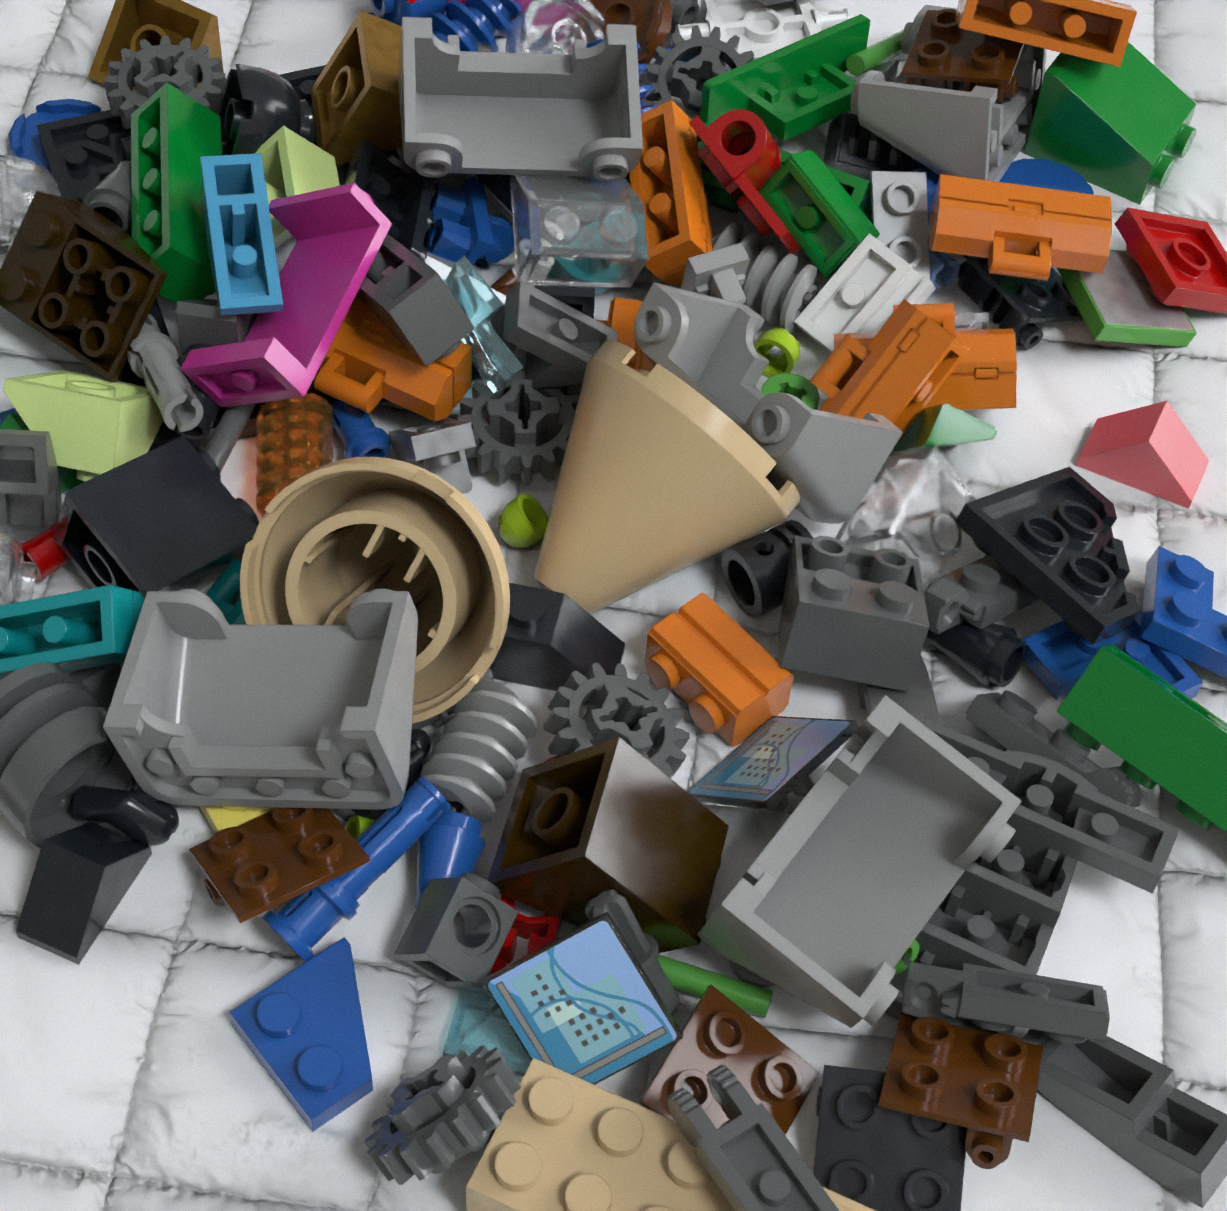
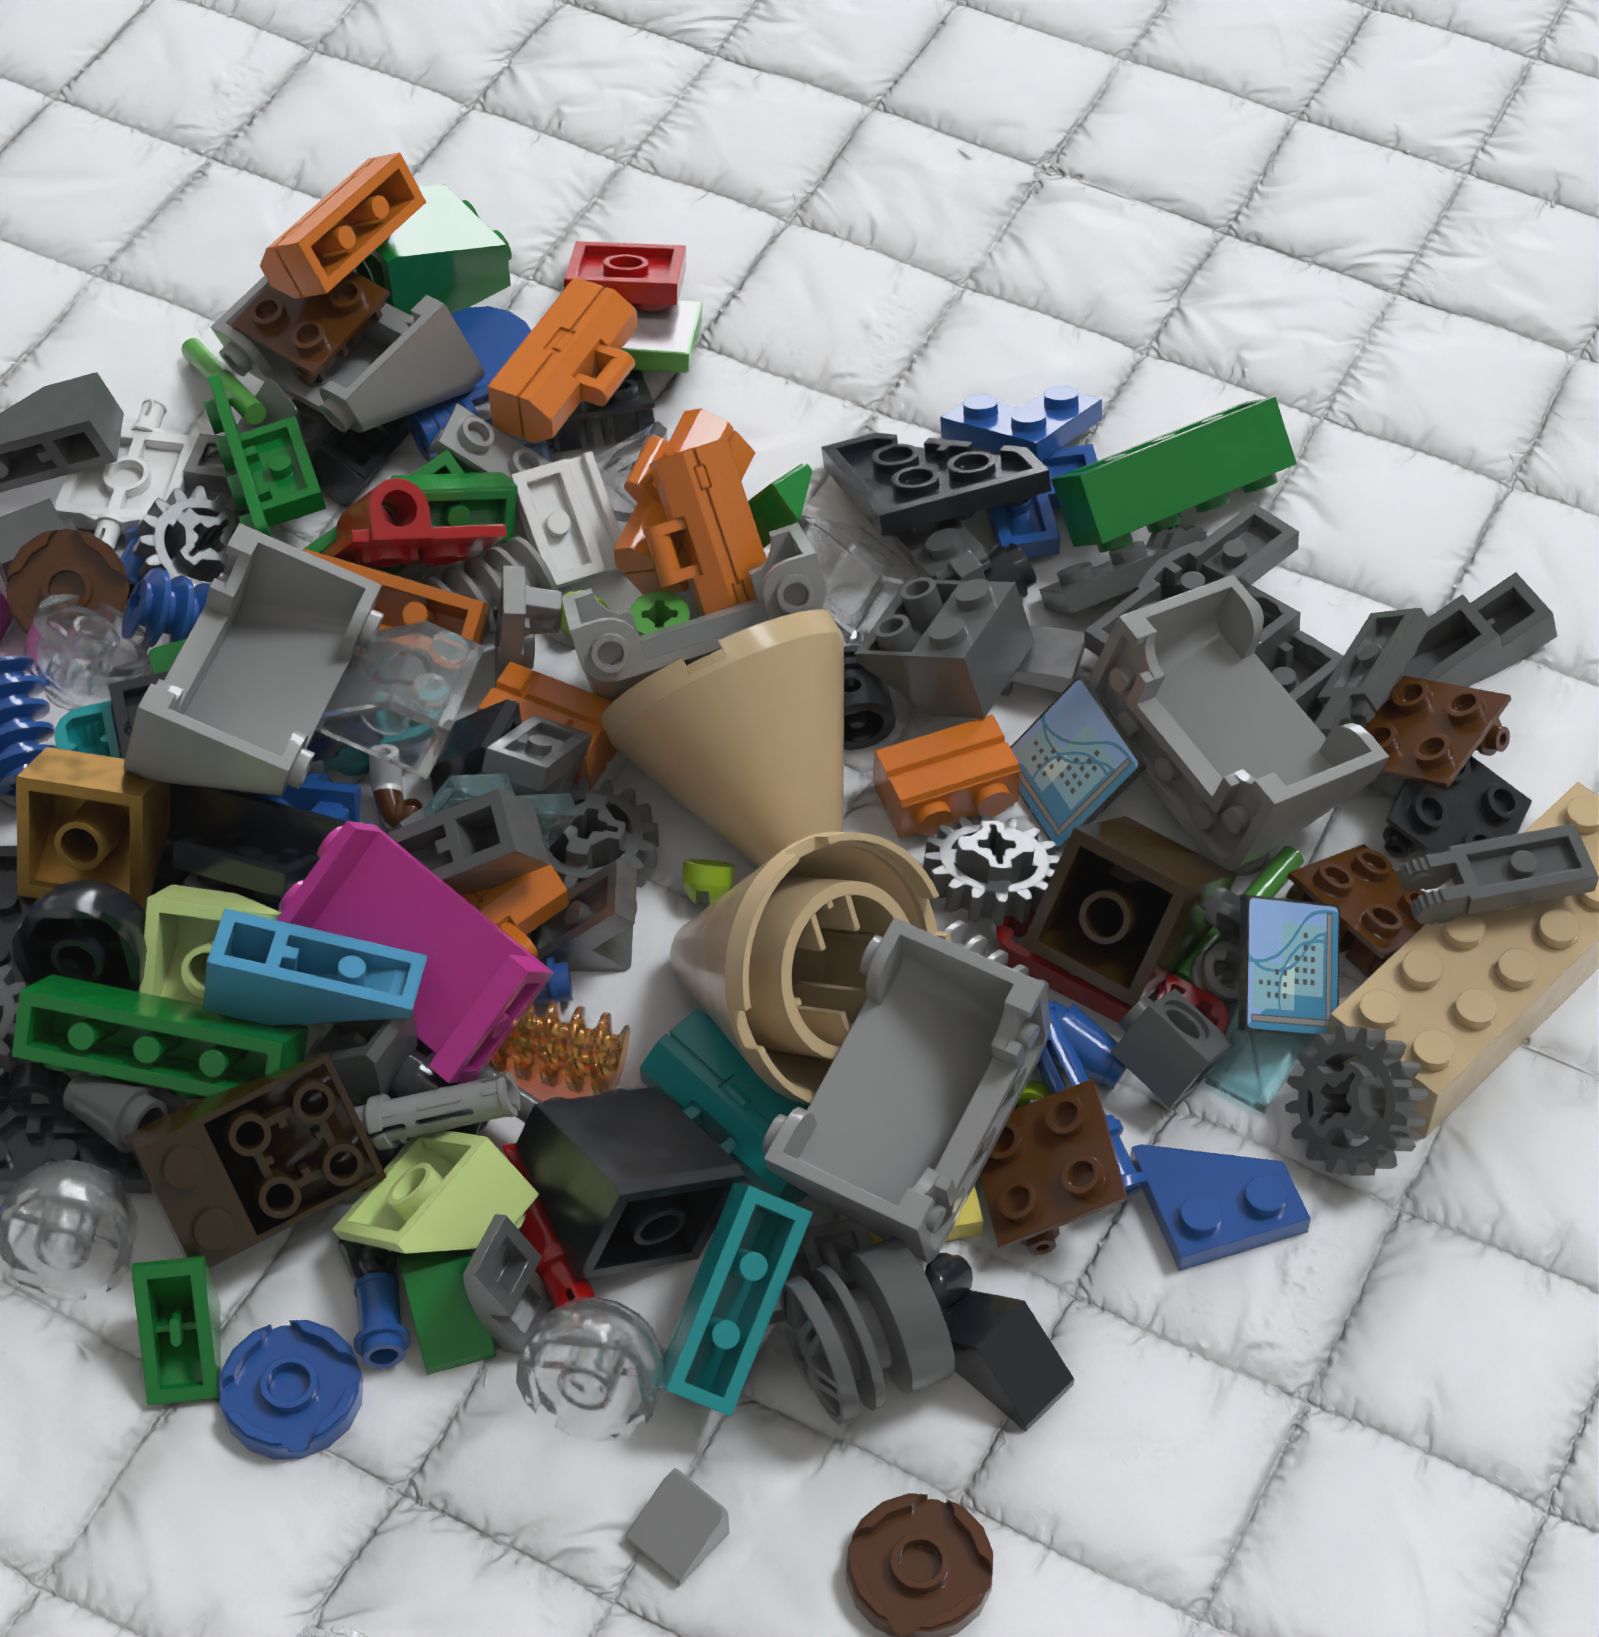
camera: 65 degrees left, 0 degrees up
(1147, 452) = (819, 393): coral slope -> none

